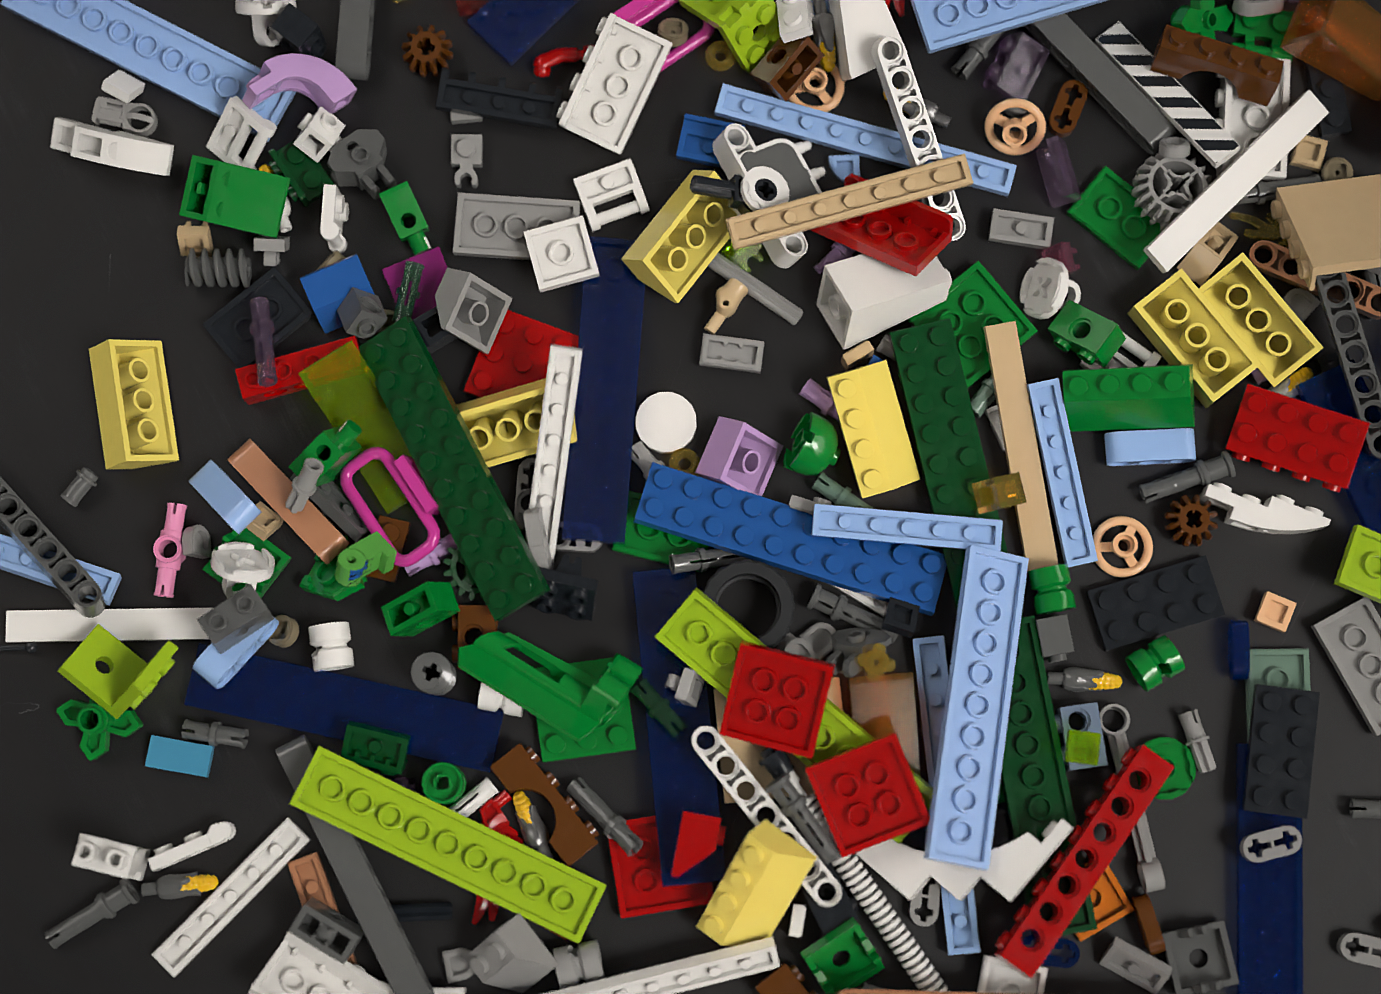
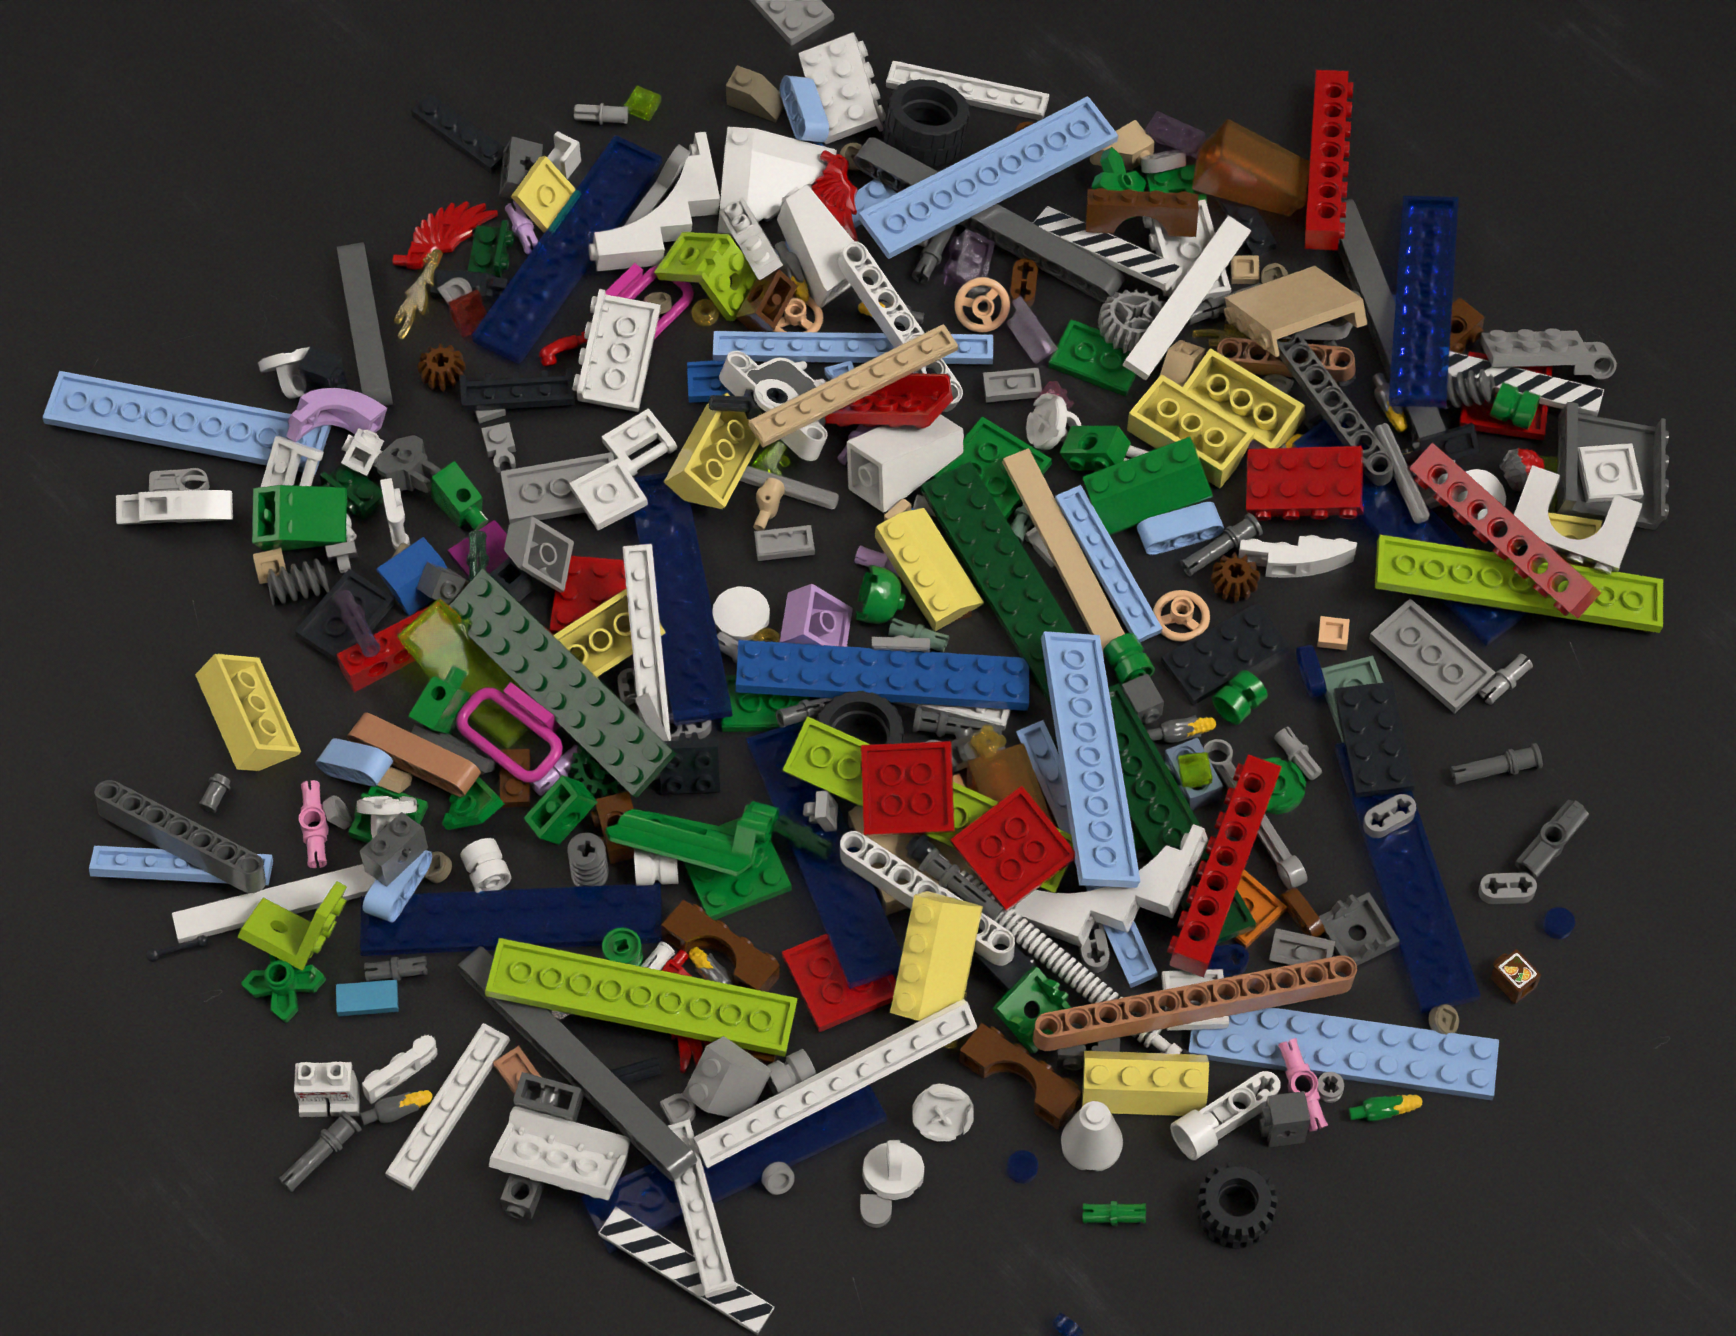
camera: 15 degrees left, 20 degrees down
(123, 86) = (171, 458): white tile -> none
(304, 485) = (428, 723): light grey axle -> none
(364, 558) = (499, 776): bright green leg -> none
(376, 748) = (552, 933): dark green bracket -> none
(614, 825) = (788, 946): dark grey pin -> none
(696, 841) = (869, 932): red slope -> none
(796, 920) = (981, 990): white tile -> none
(900, 617) = (1000, 713): black plate -> none
(905, 527) = (979, 635): light blue plate -> none
(999, 492) = (1056, 587): clear yellow brick -> none
(1174, 147) = (1126, 286): light grey tile -> none

